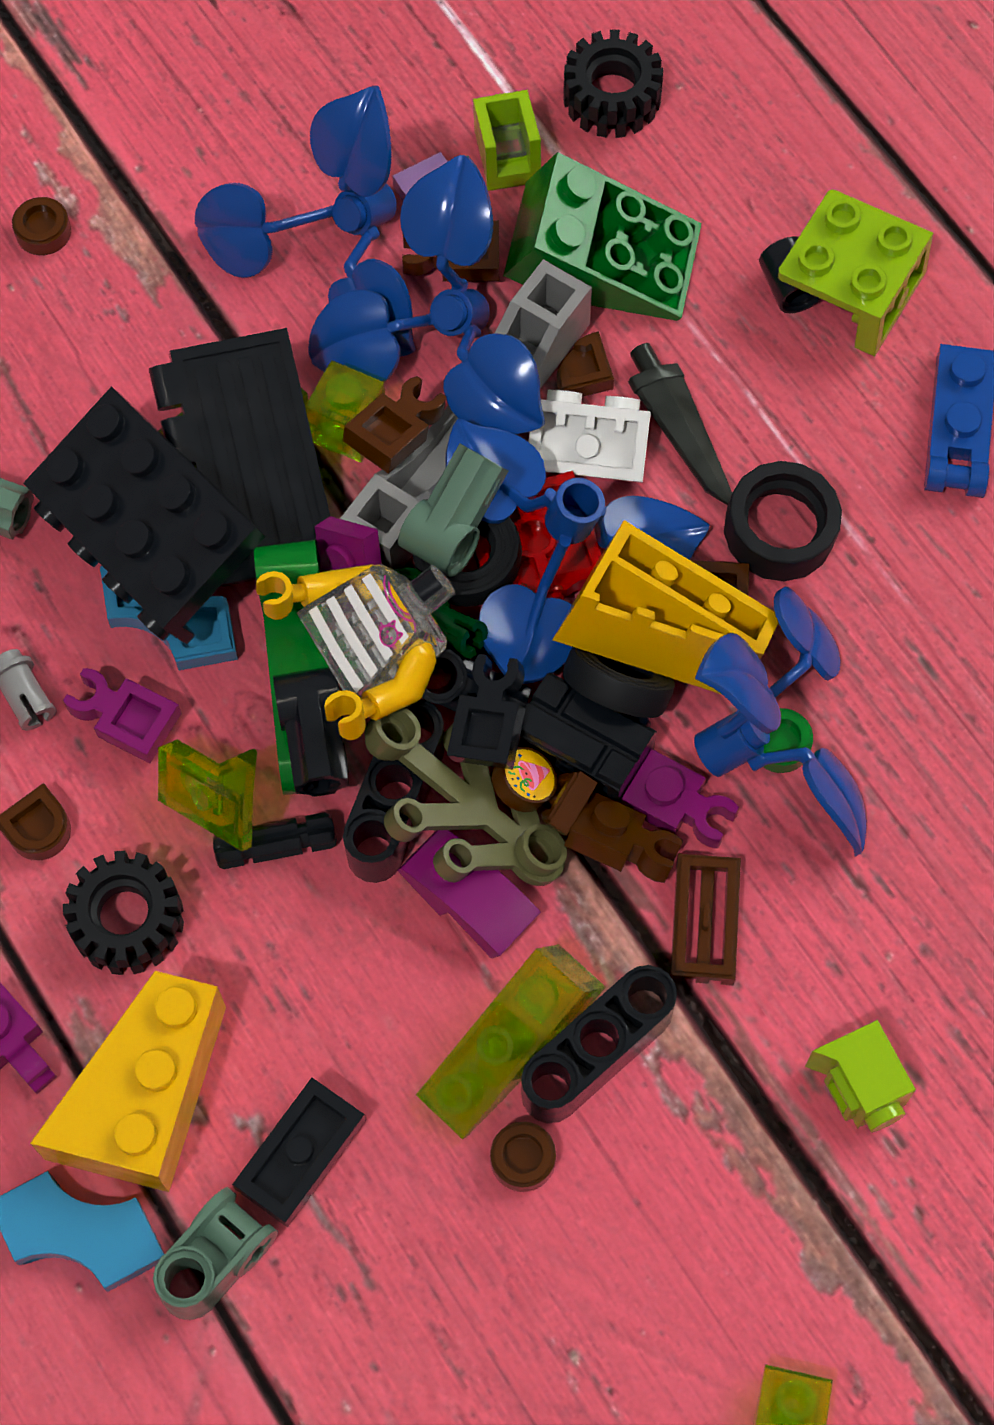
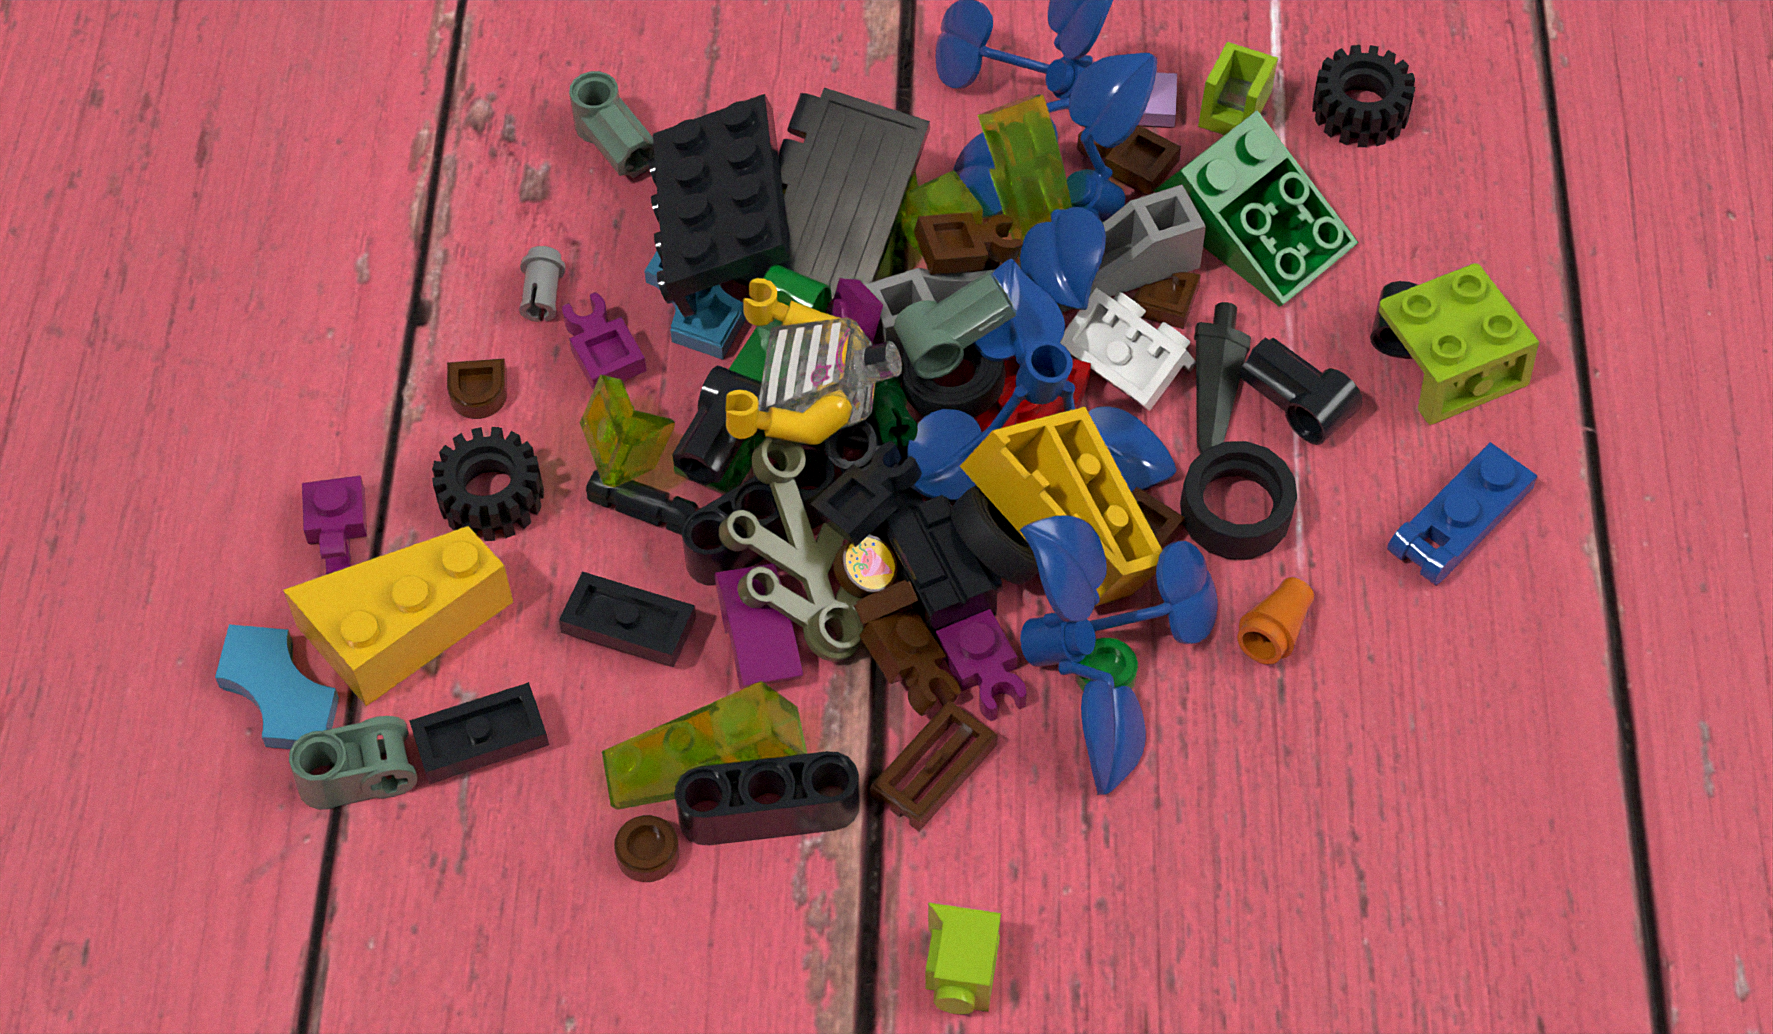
camera: 35 degrees right, 10 degrees down
(349, 959) = (627, 619): none -> black plate
(403, 321) = (1026, 162): none -> clear neon green slope
(775, 390) = (1312, 399): none -> black piece
(890, 614) = (1273, 625): none -> orange cone

